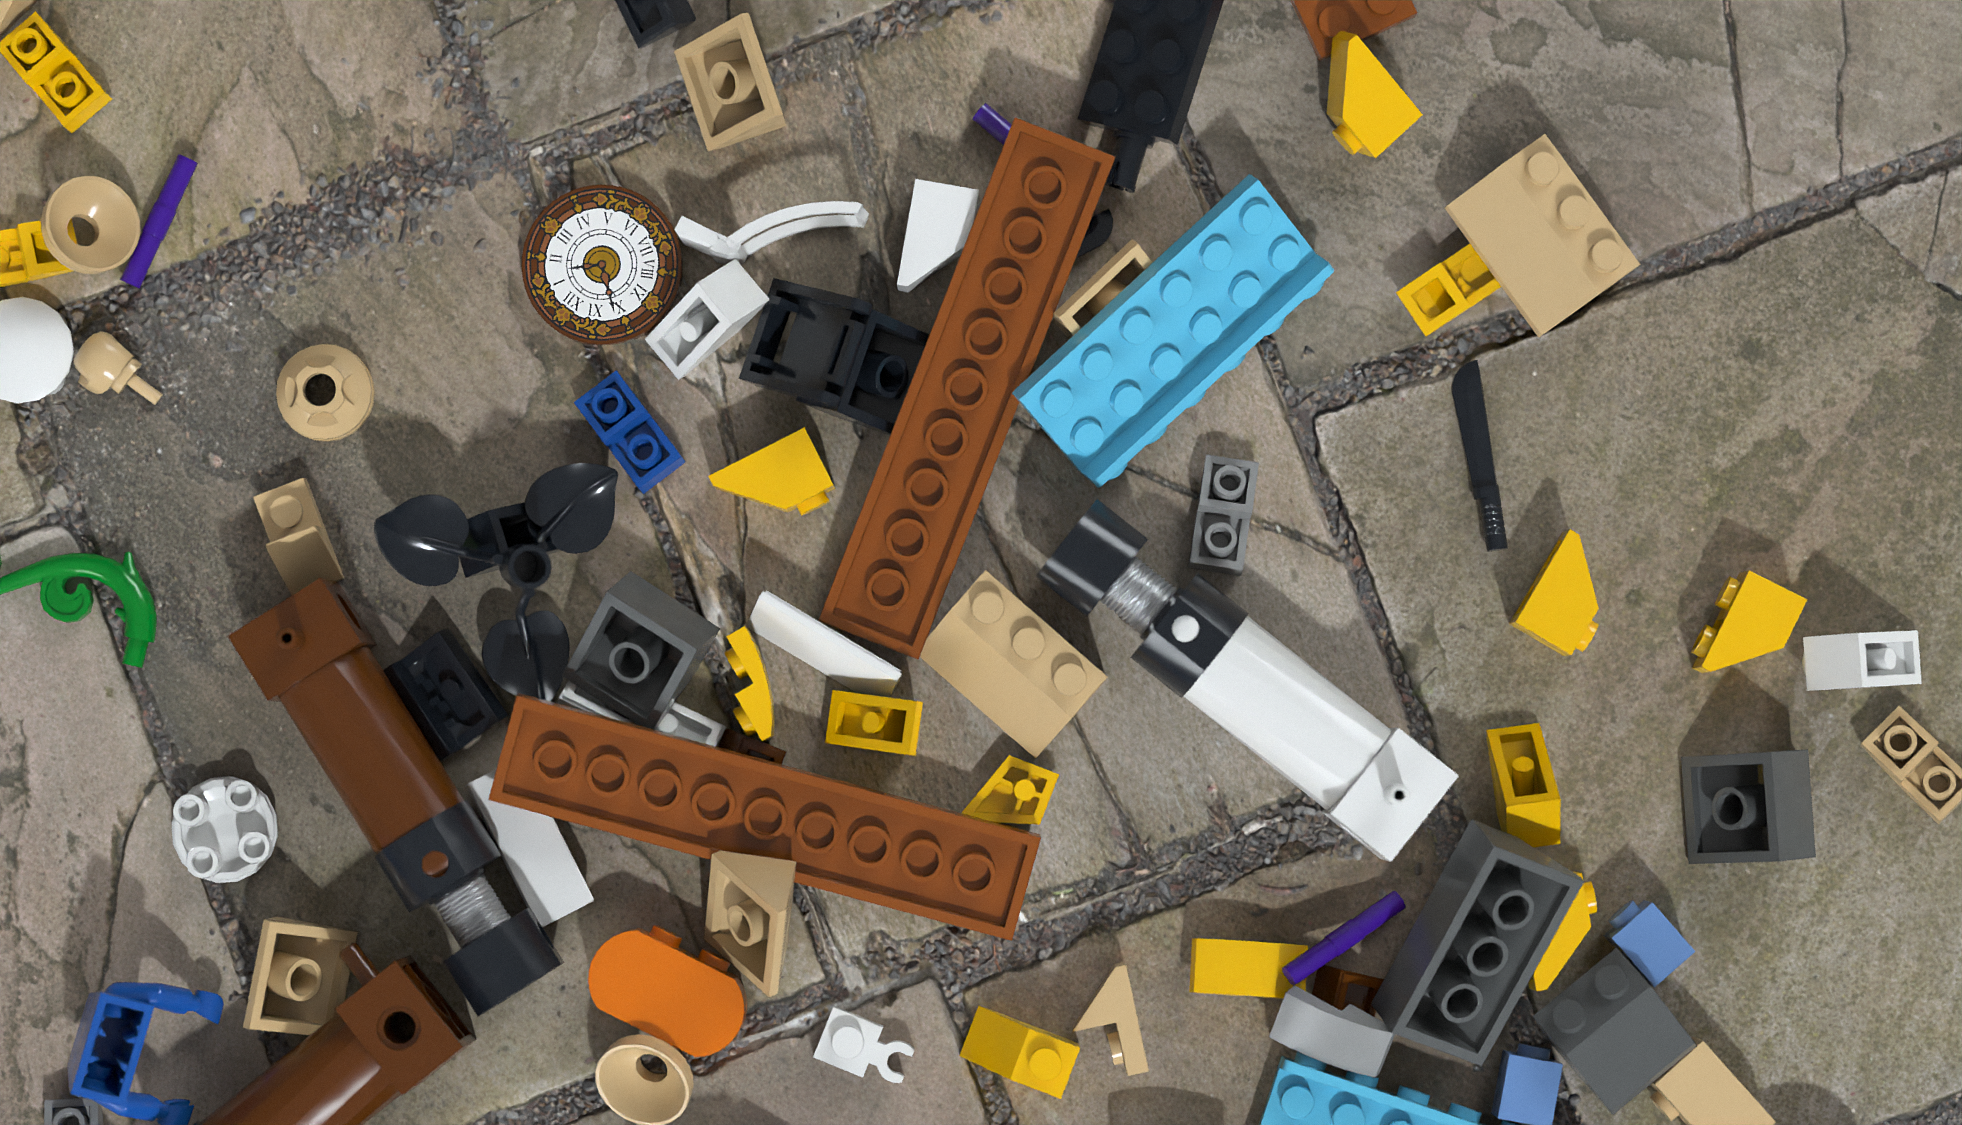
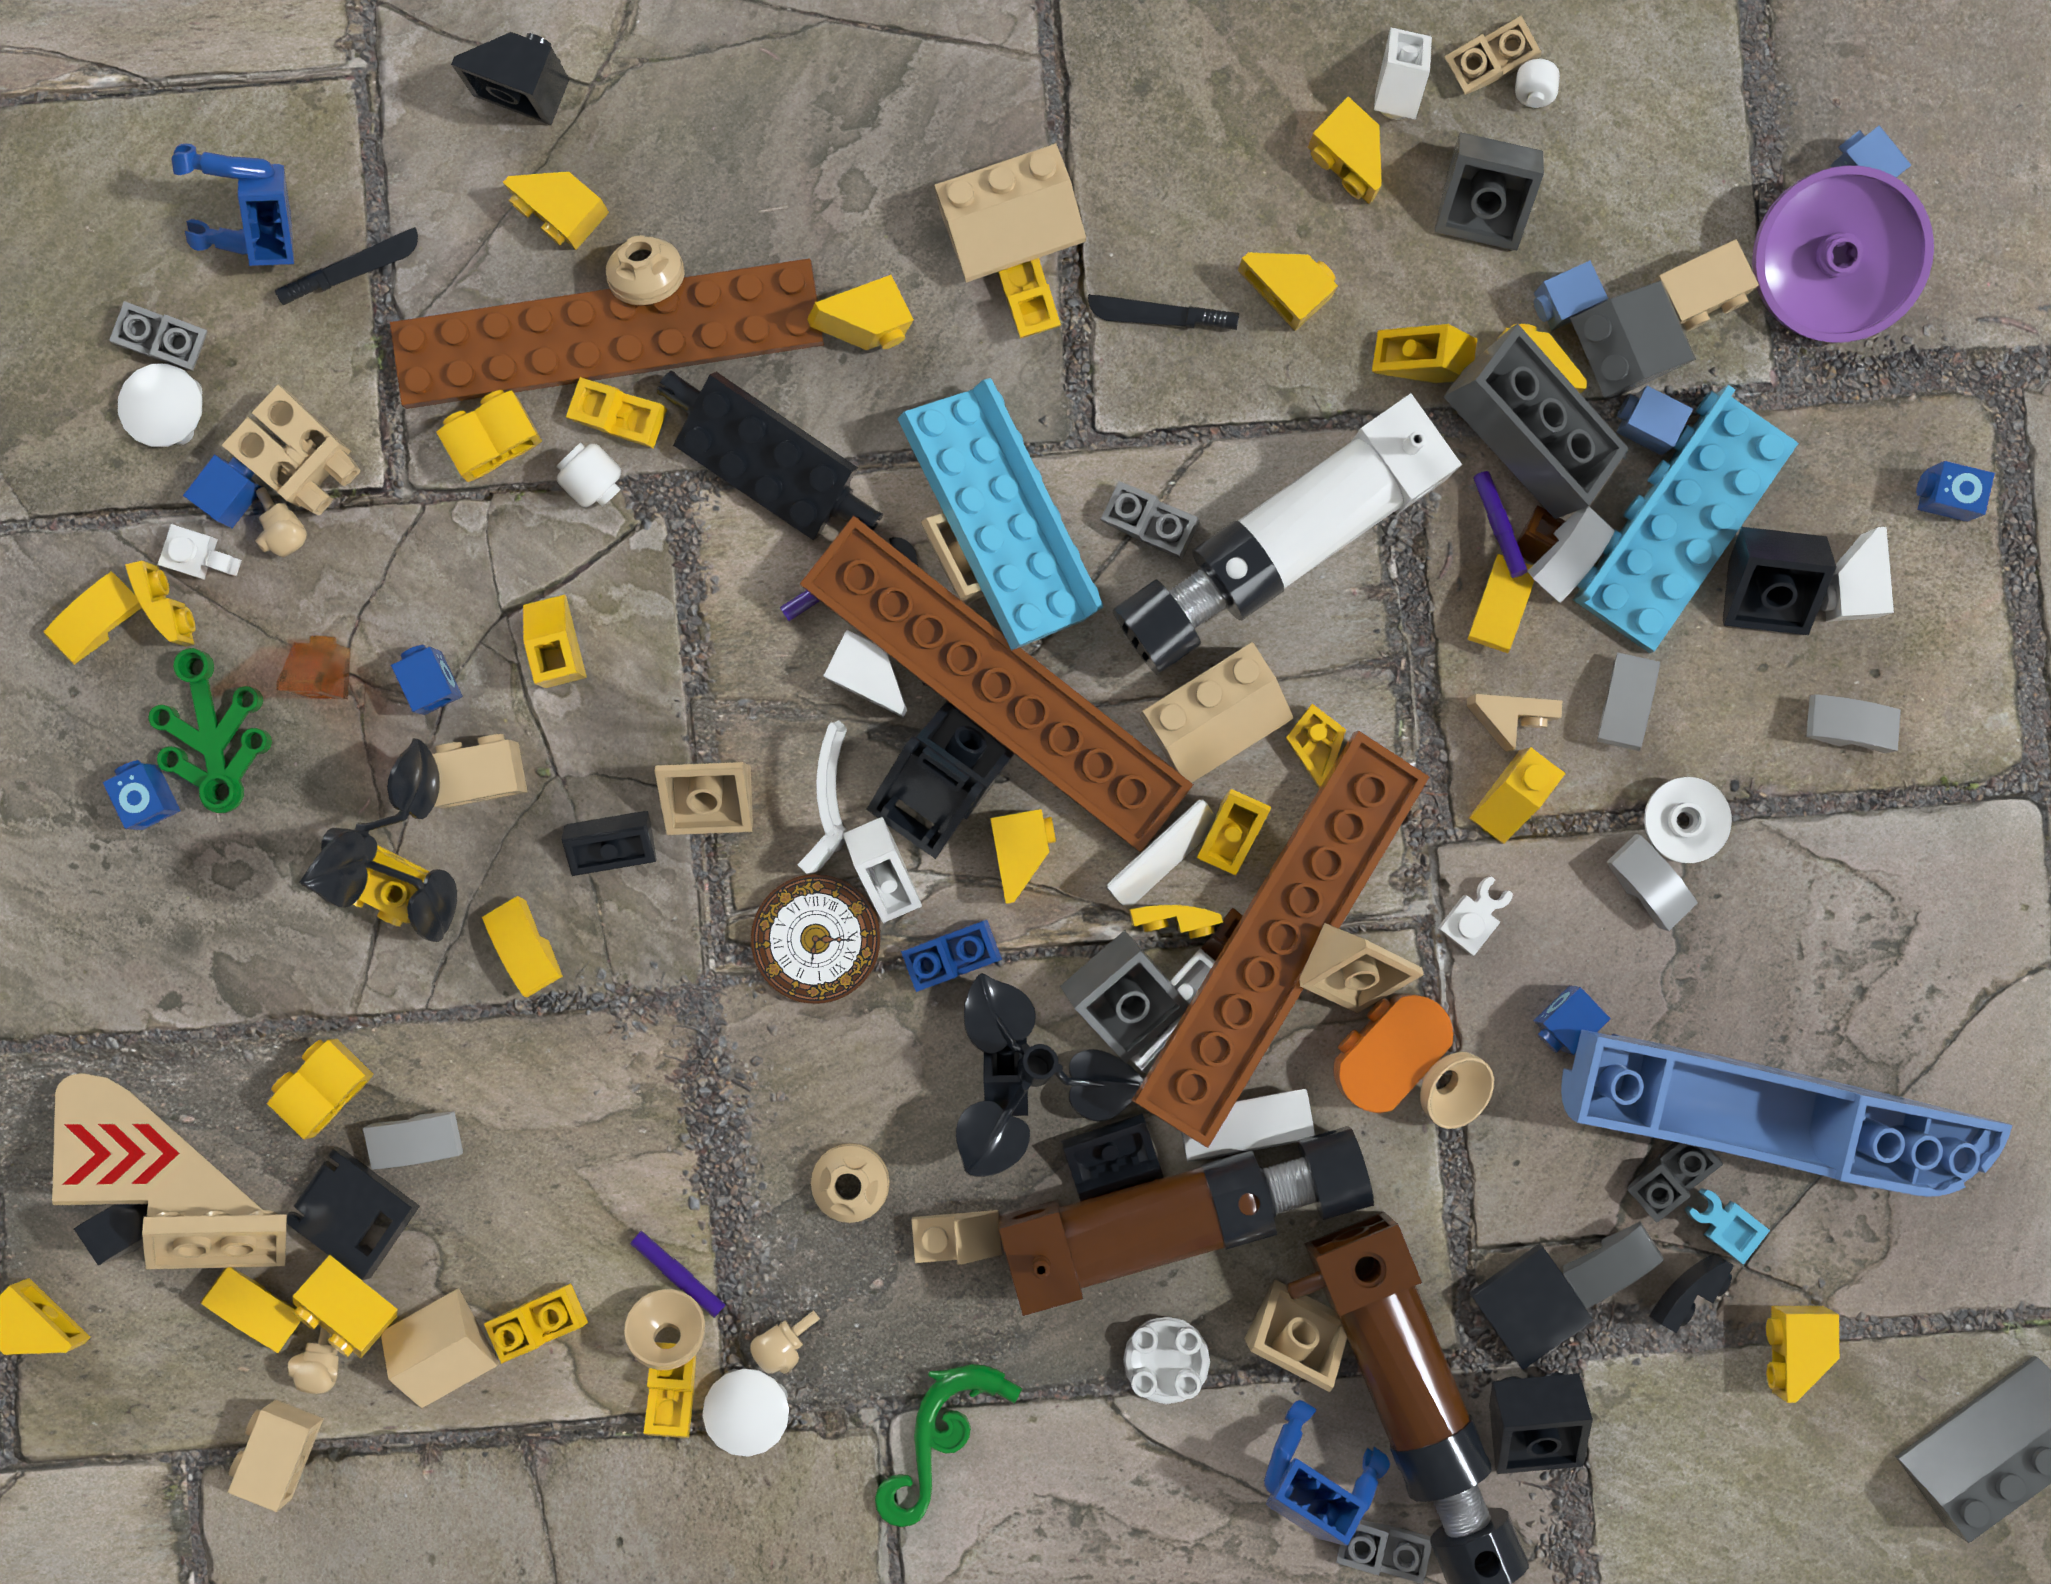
camera: 75 degrees left, 0 degrees up
(1900, 828) = (1537, 83): none -> white piece

